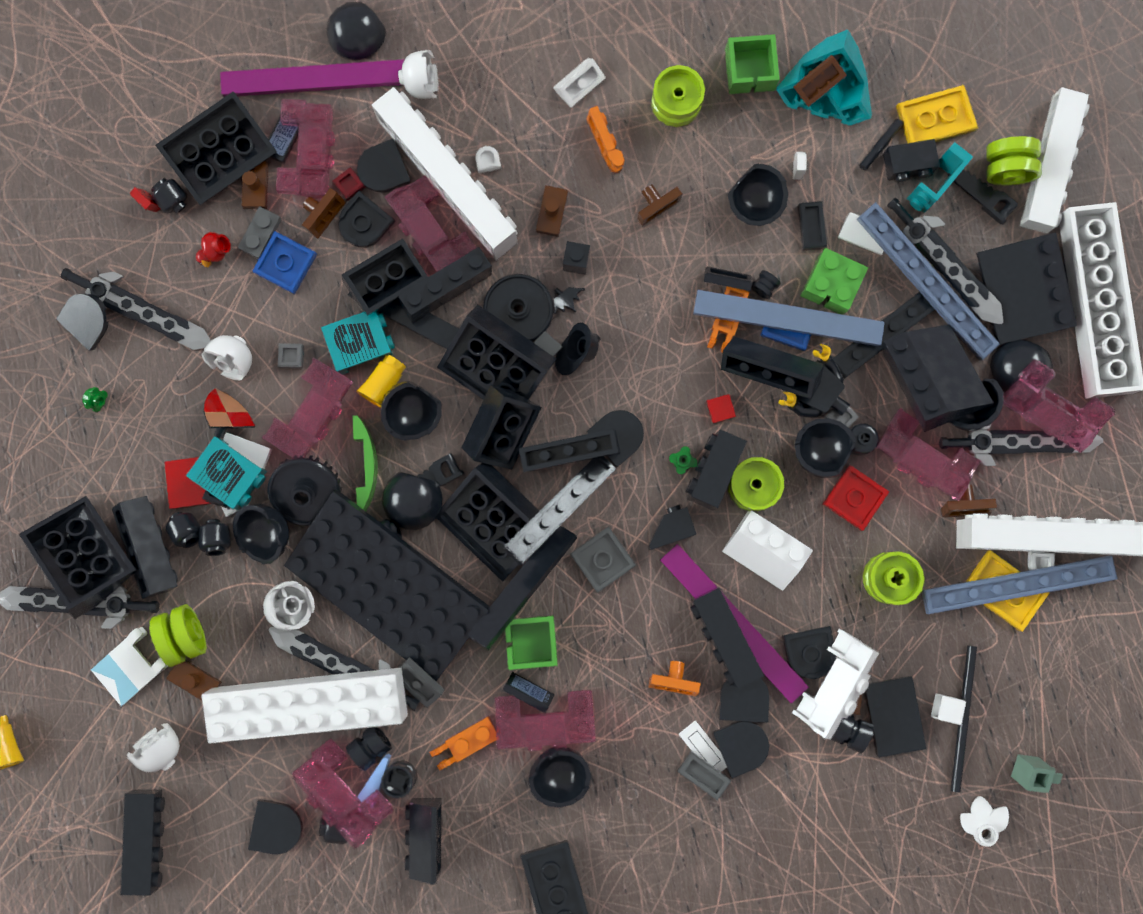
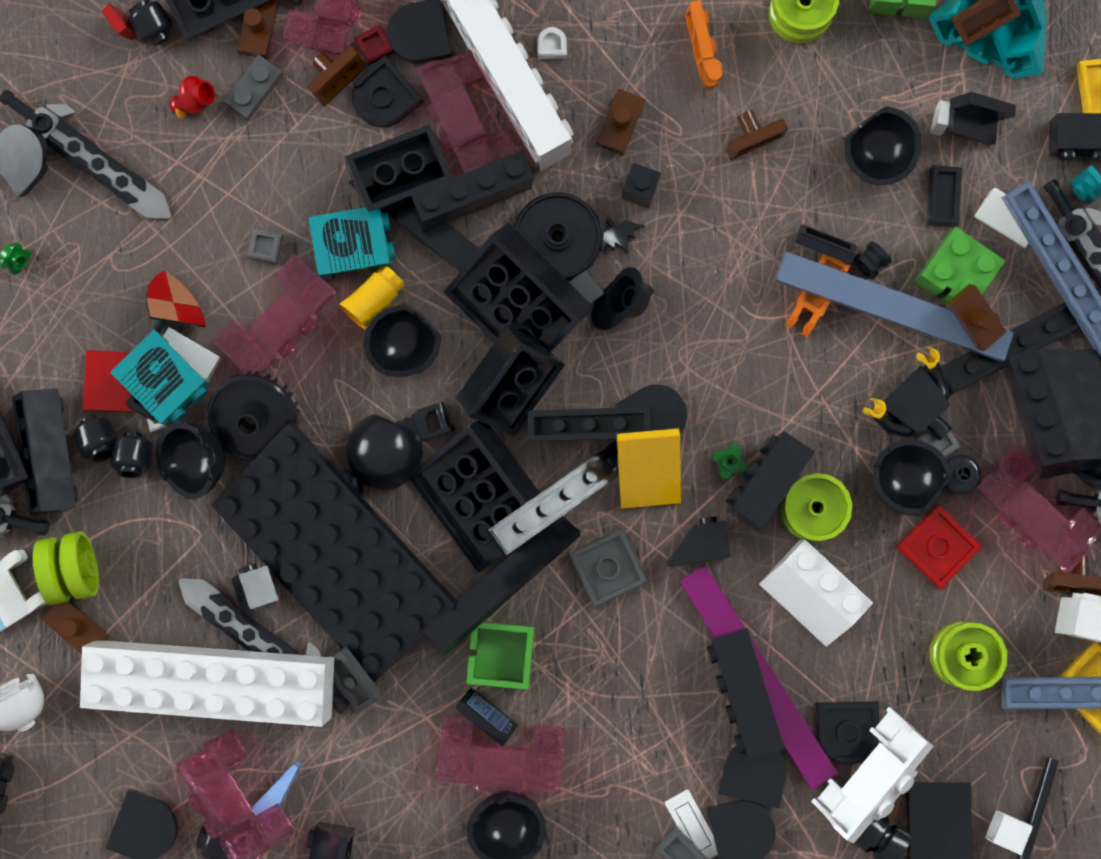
camera: 15 degrees right, 0 degrees up
(228, 355) = (189, 232): white cylinder -> none
(284, 262) = (277, 129): blue tile -> none
(288, 605) = (208, 556): white cylinder -> none
(329, 624) = (254, 587): none -> brick
(362, 434) = (335, 358): bright green slope -> none
(365, 750) = (273, 750): black wheel -> none
(399, 779) = (307, 795): black wheel -> none
(466, 742) = (399, 764): orange hinge -> none
(621, 476) = (649, 468): none -> yellow tile
(674, 681) = (670, 735): orange tile -> none
(720, 408) = (788, 405): red tile -> none
(772, 367) = (862, 364): black brick -> none
(788, 338) = (890, 332): blue tile -> none
(827, 159) = (977, 116): none -> black panel
(853, 315) = (976, 317): none -> reddish brown tile
(881, 144) = (1049, 109): black piece -> none

